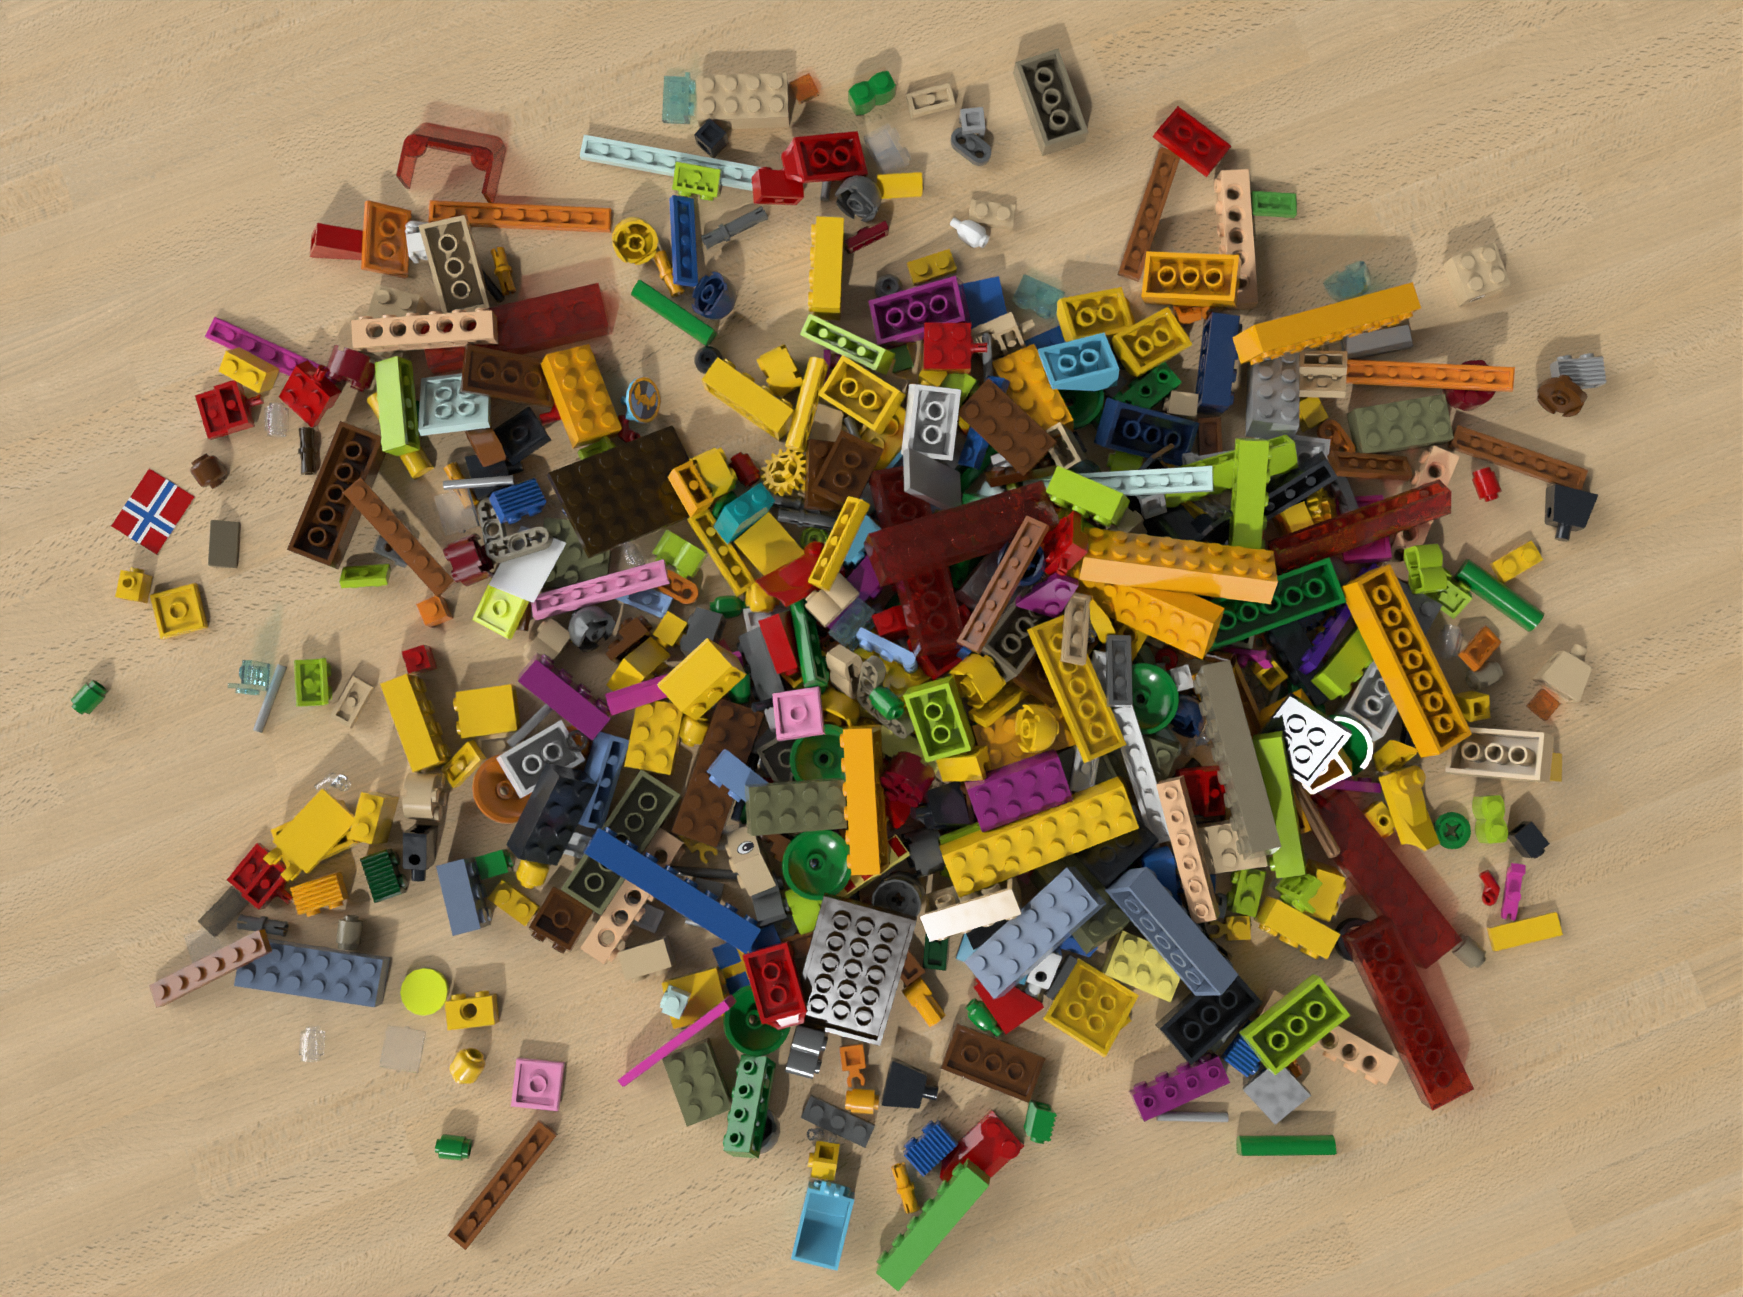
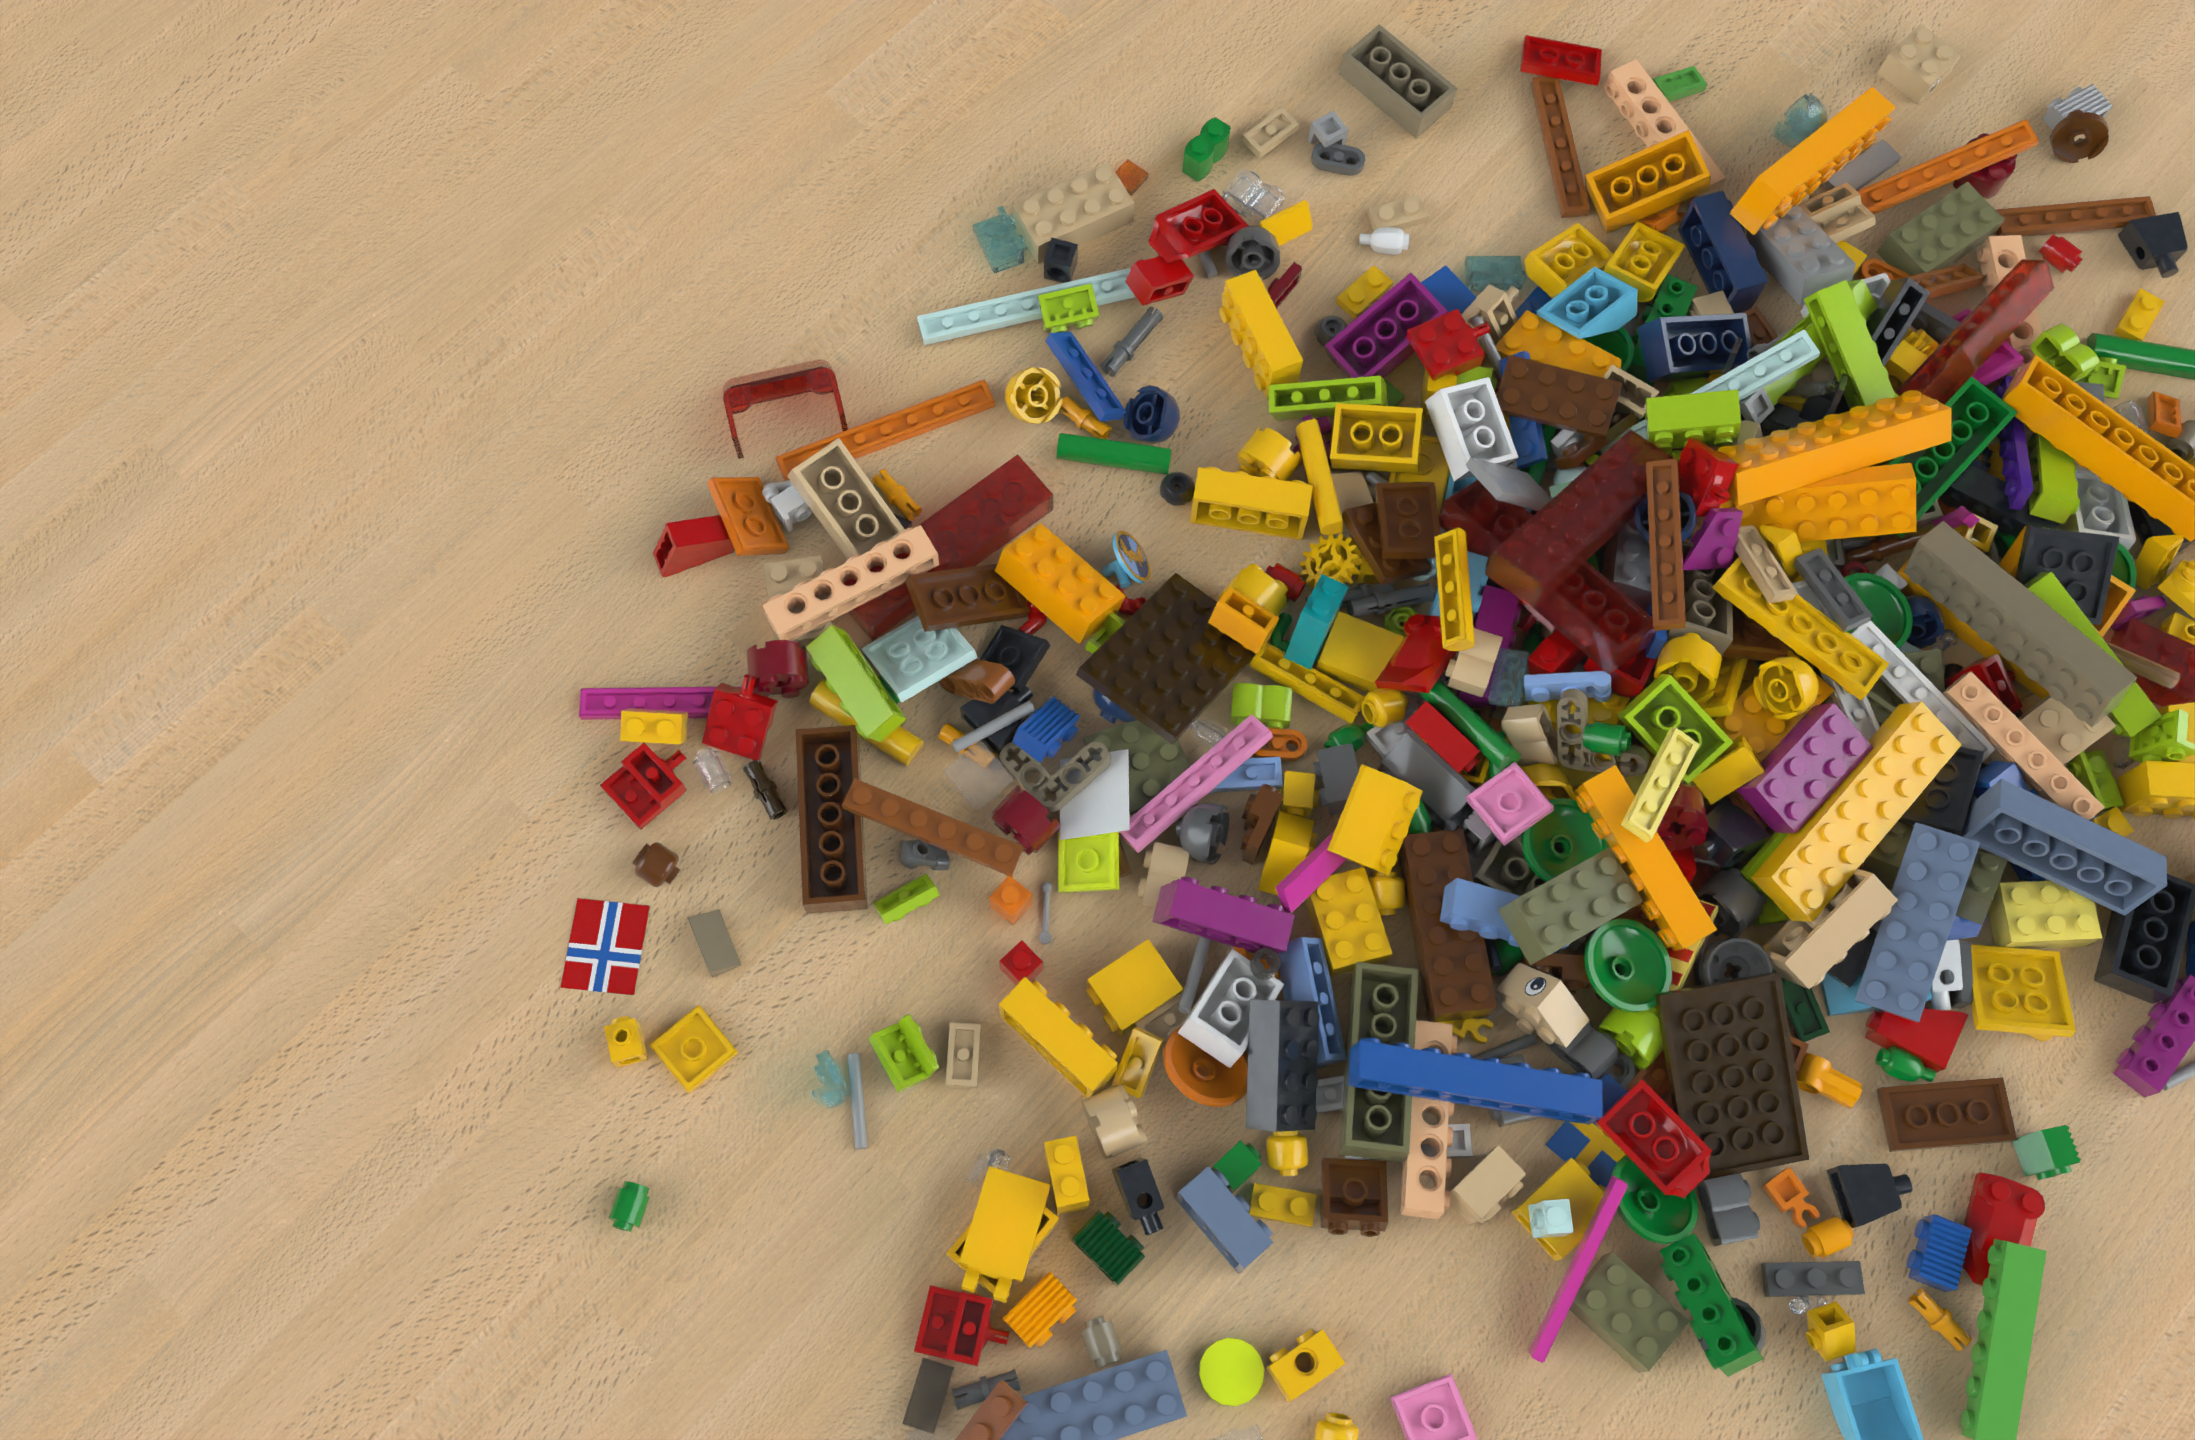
camera: 25 degrees left, 15 degrees down
(449, 645) = (1045, 937): none -> light grey hinge
(896, 756) = (1660, 784): none -> light yellow tile

